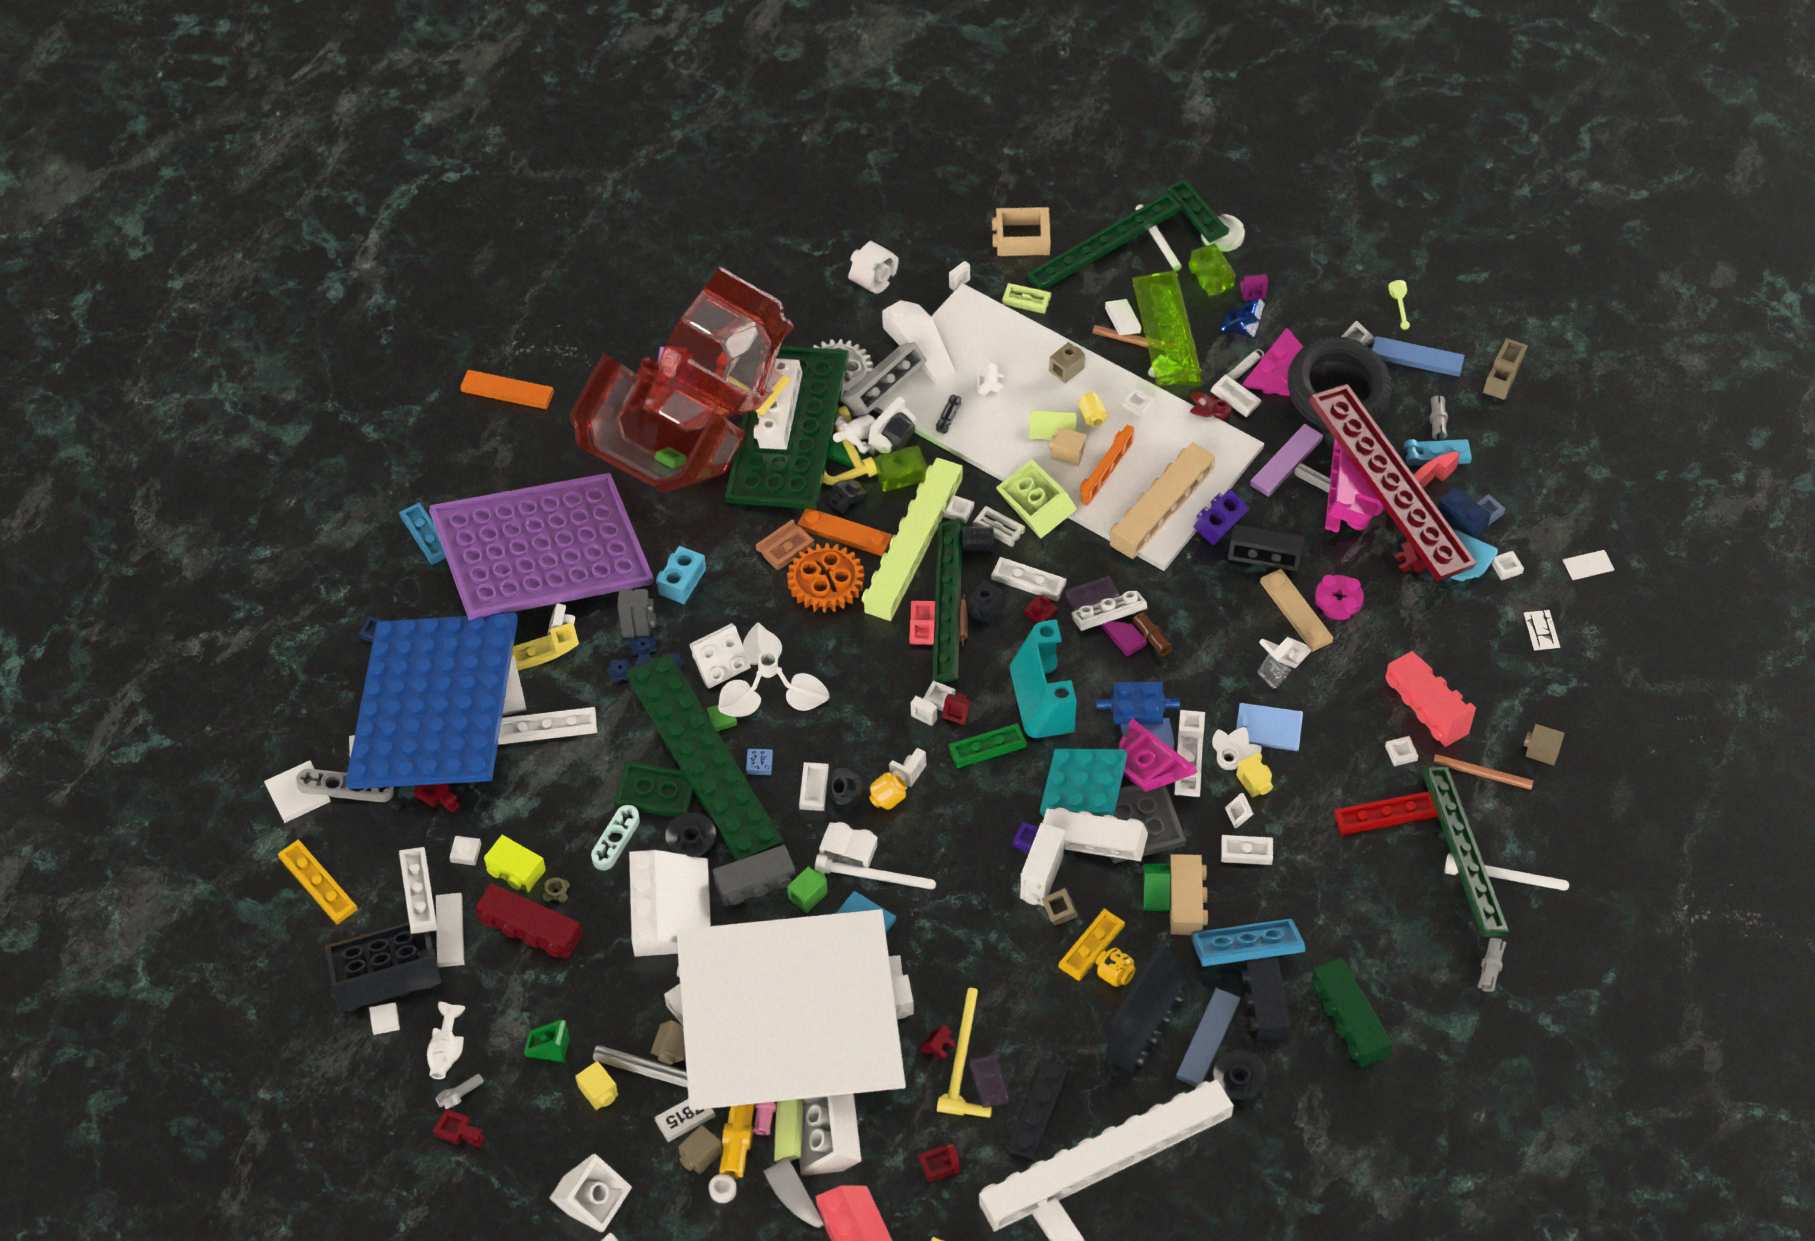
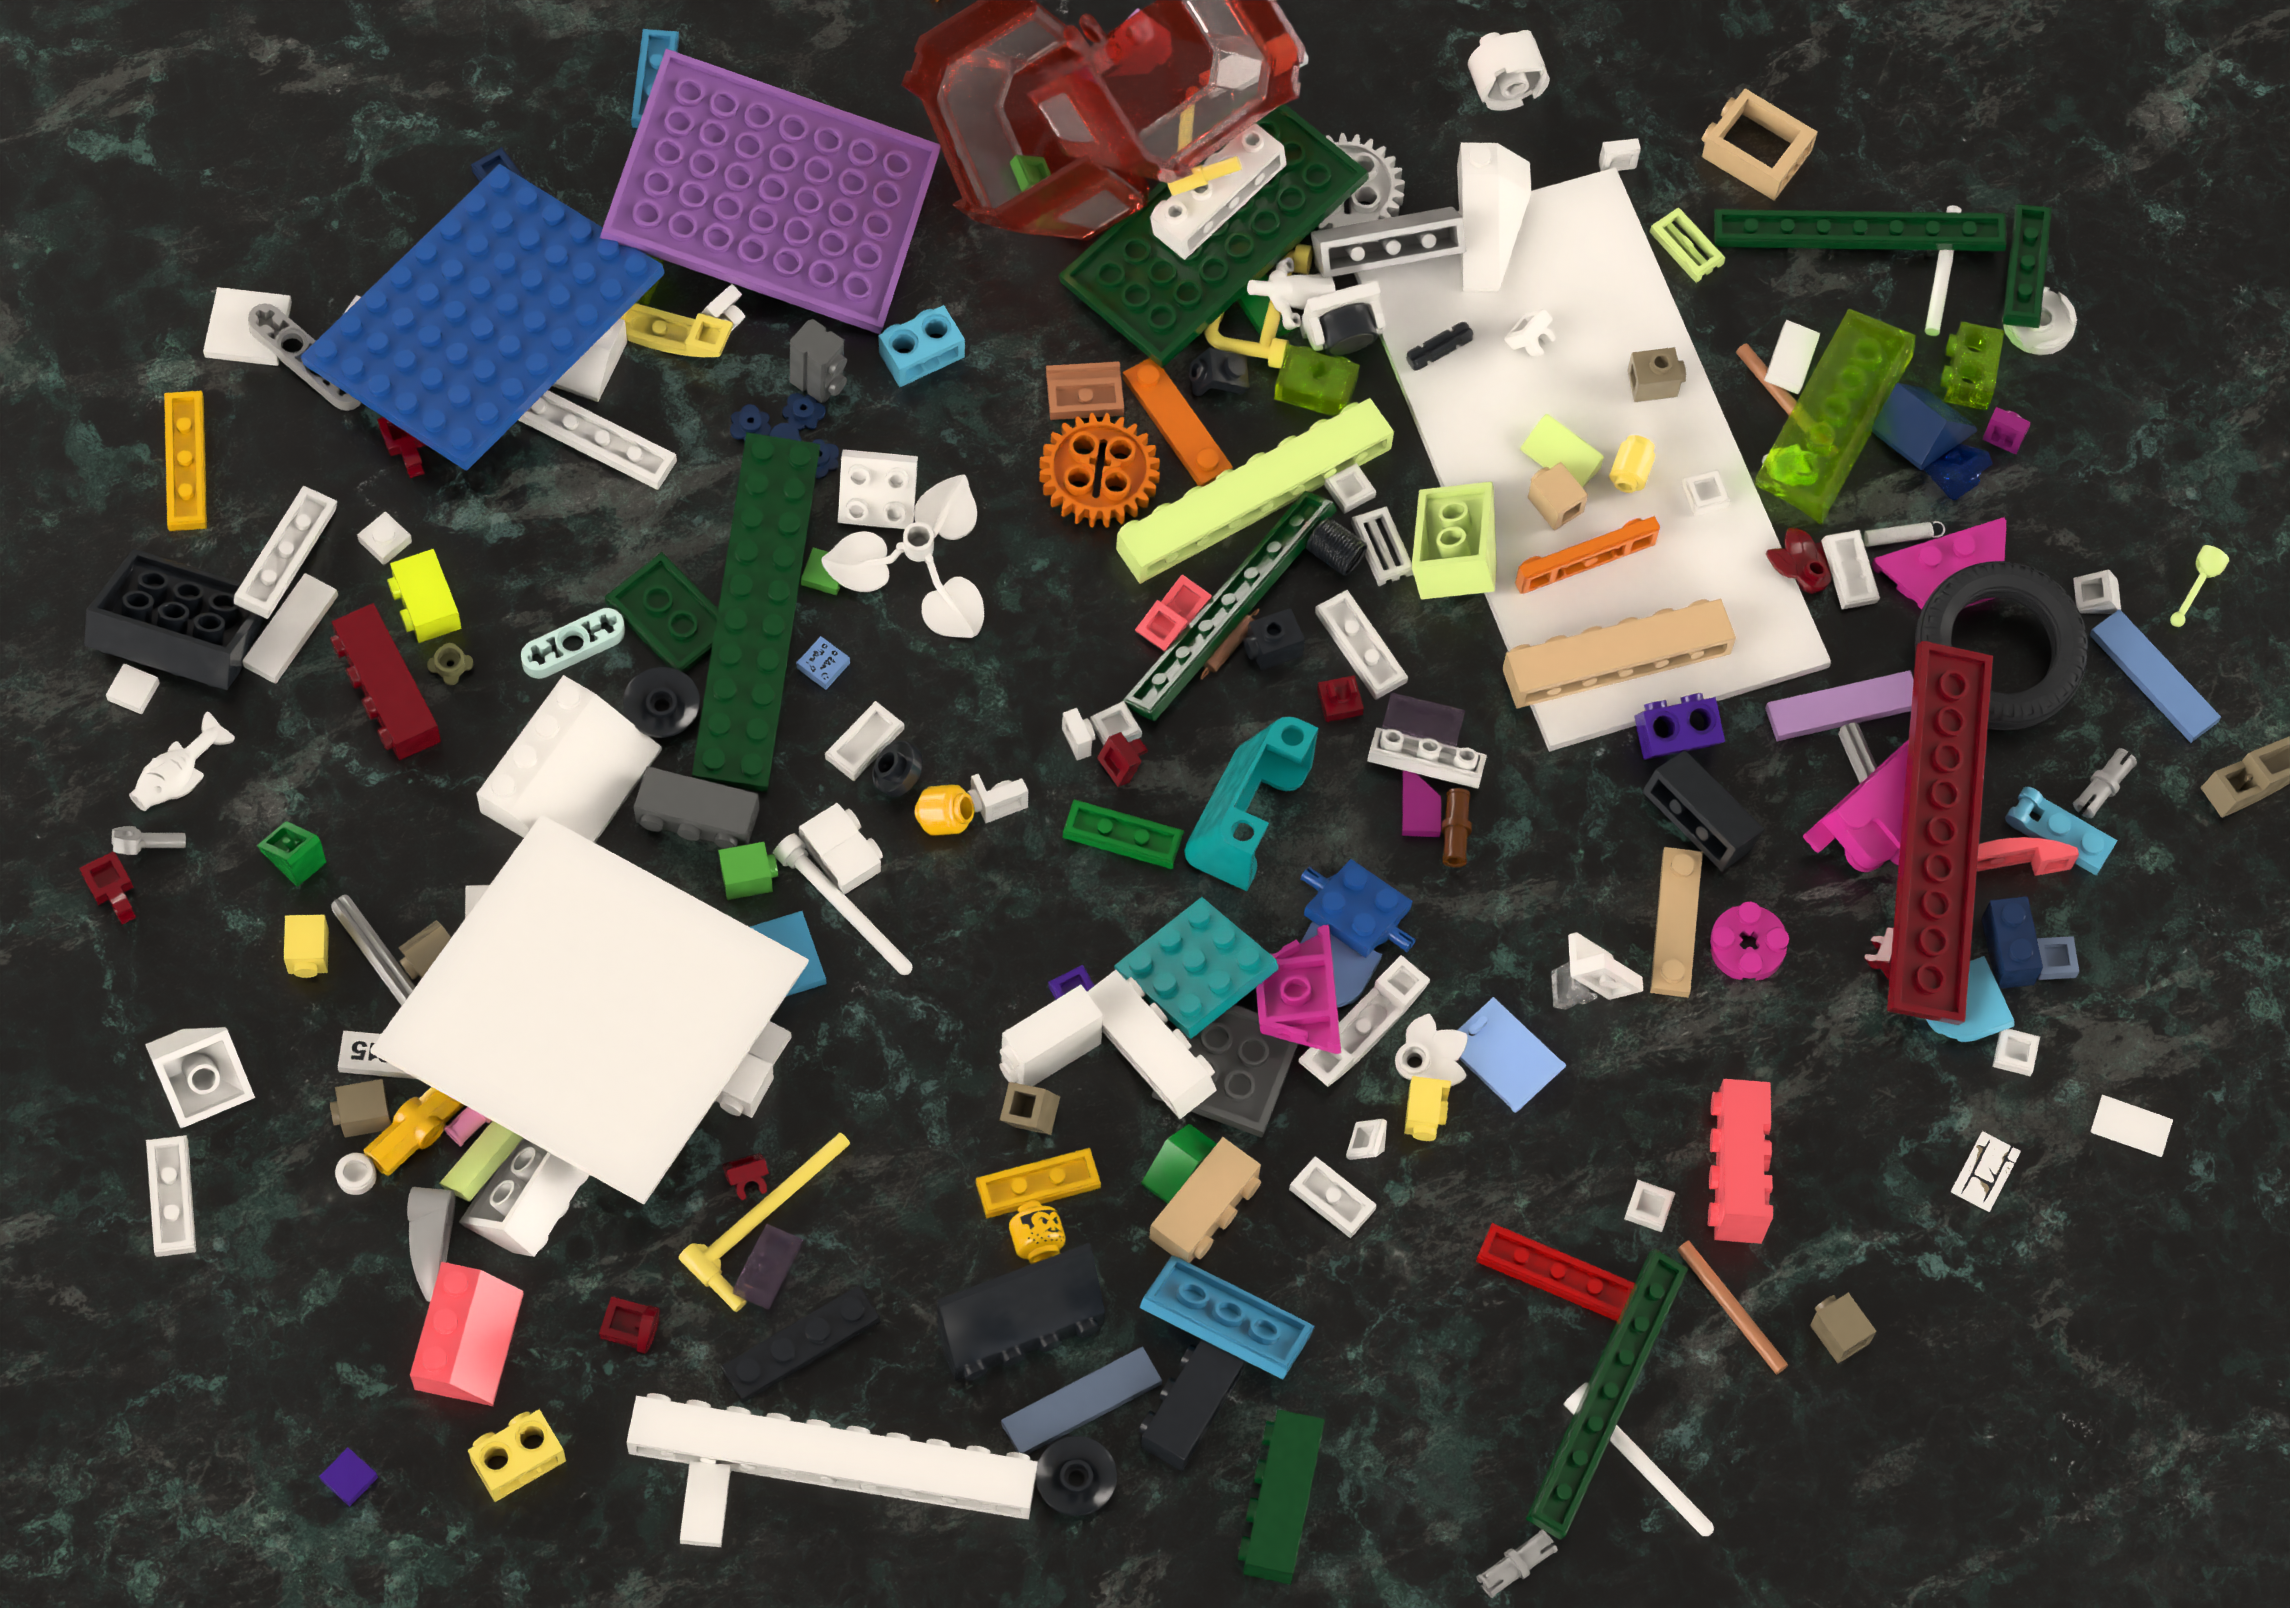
camera: 30 degrees right, 10 degrees up
(1211, 311) = (1920, 425): none -> dark blue slope

